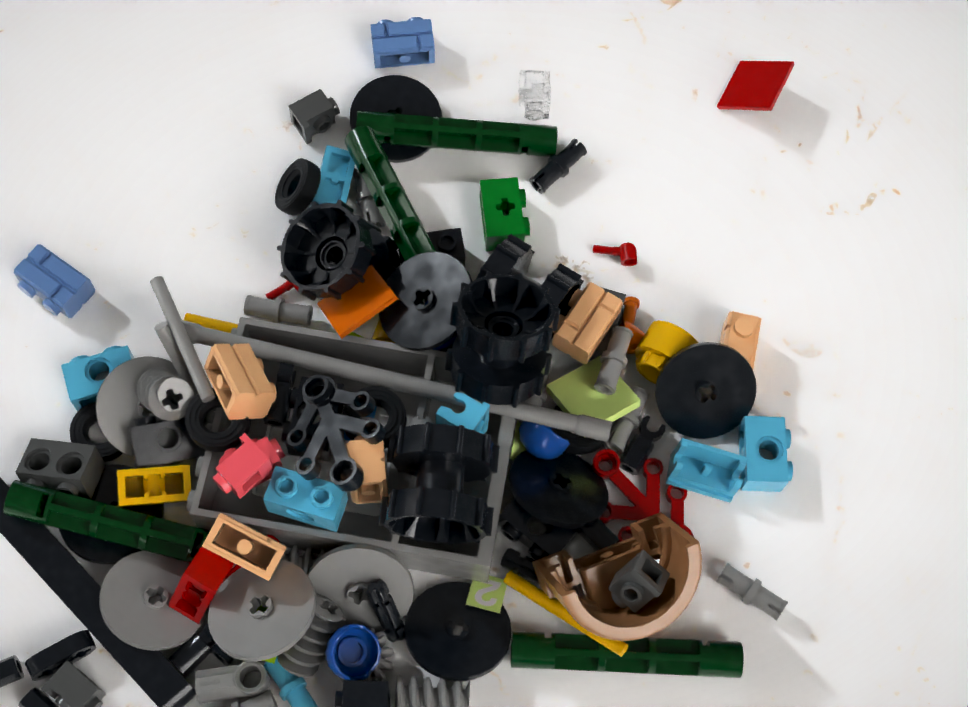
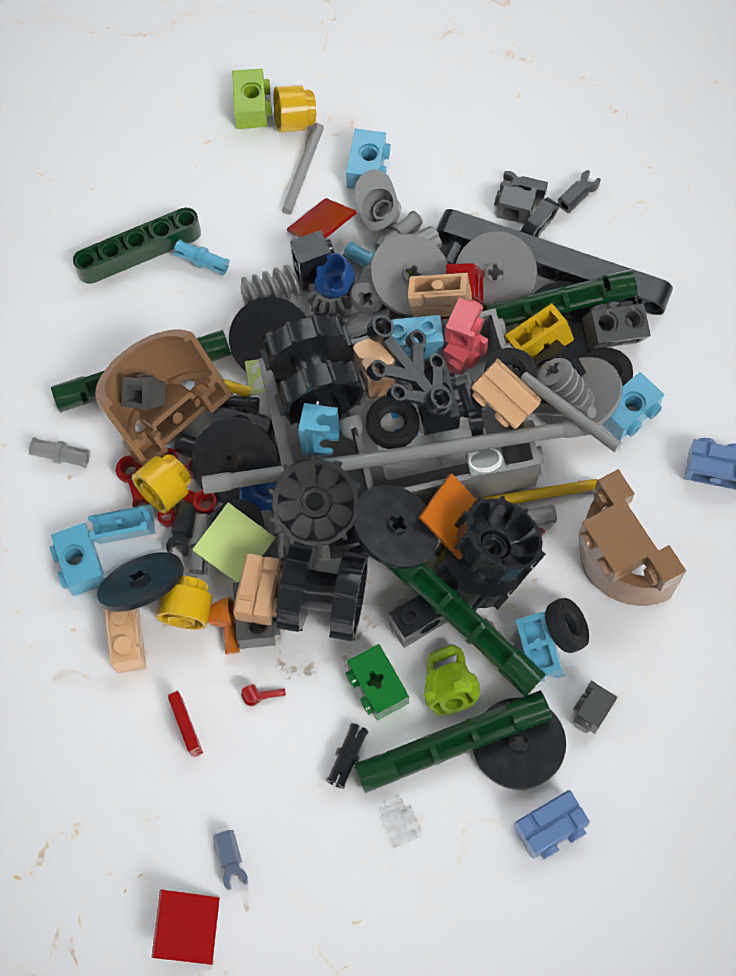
camera: 165 degrees right, 0 degrees up
(209, 212) = (616, 544): none -> medium nougat piece
(297, 336) = (485, 461): none -> light grey sticker
(436, 184) = (451, 685): none -> lime piece
(613, 360) = (225, 571): light grey pin -> none
(647, 488) = (162, 482): none -> yellow piece
(697, 129) = (229, 857): none -> sand blue bar
(701, 249) = (185, 724): none -> red tile

